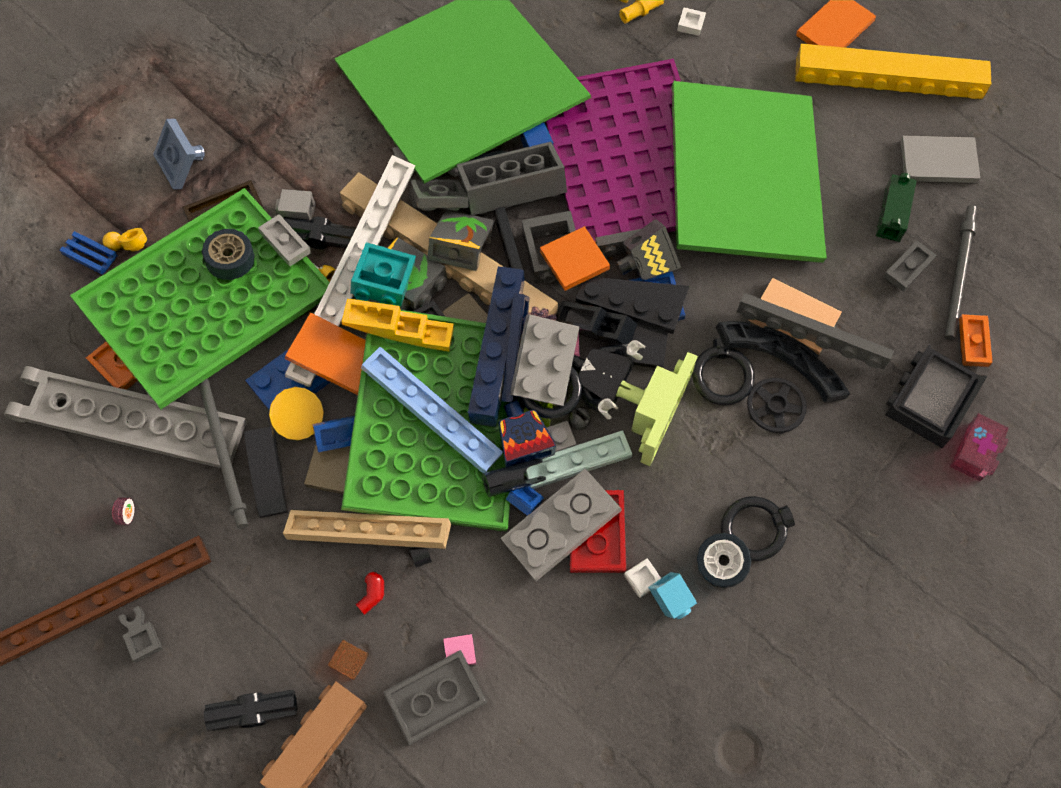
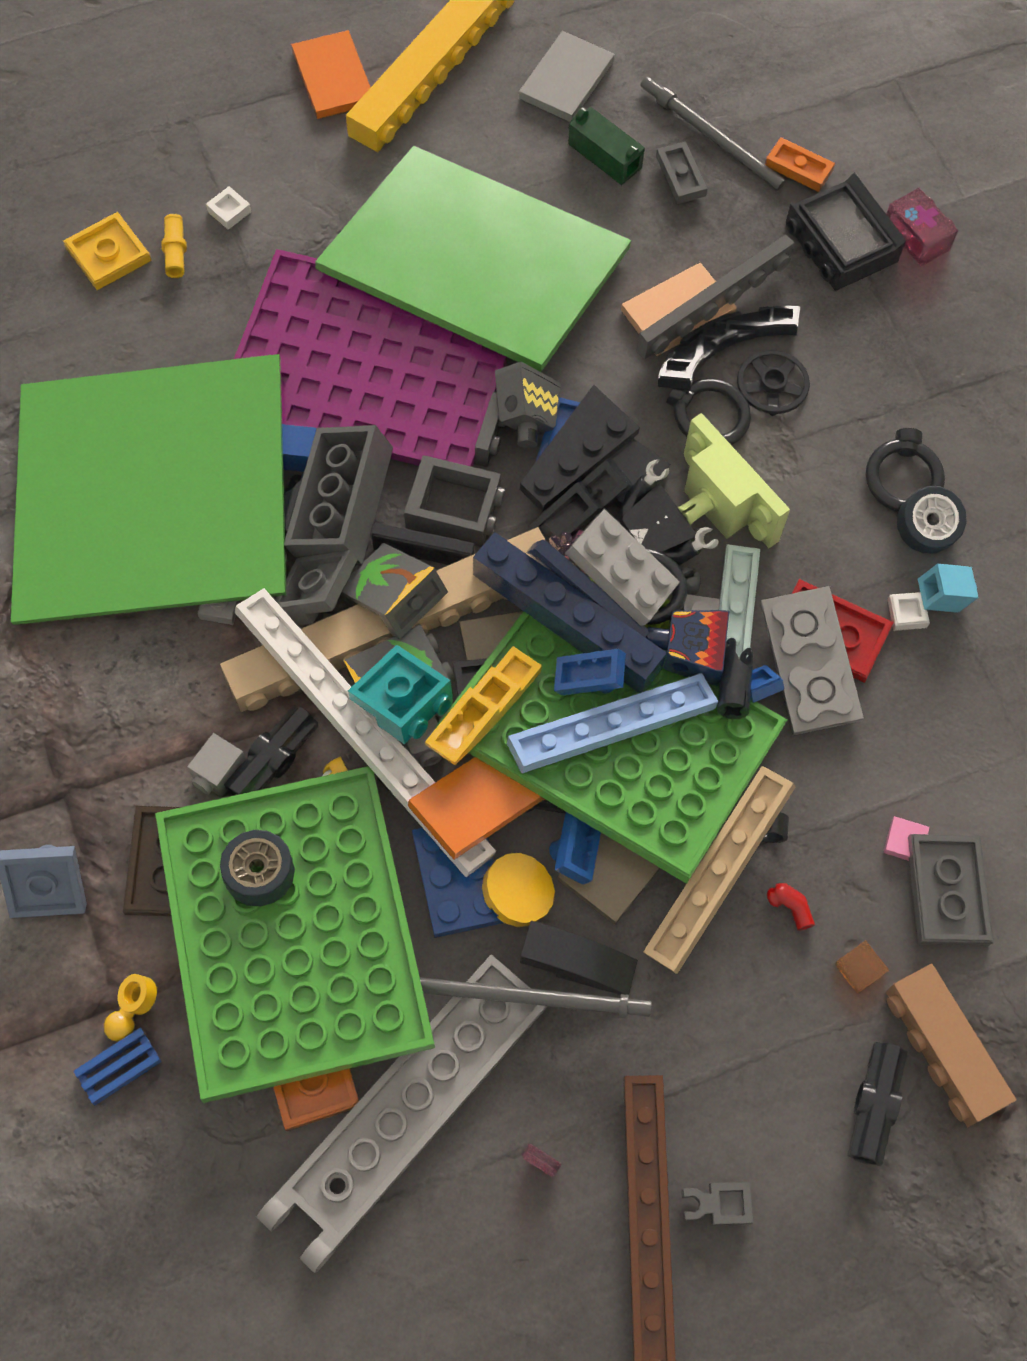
camera: 65 degrees left, 0 degrees up
(284, 240) = (274, 792): light grey plate -> none
(456, 378) = (590, 672): none -> blue tile
(574, 258) = (494, 479): orange tile -> none

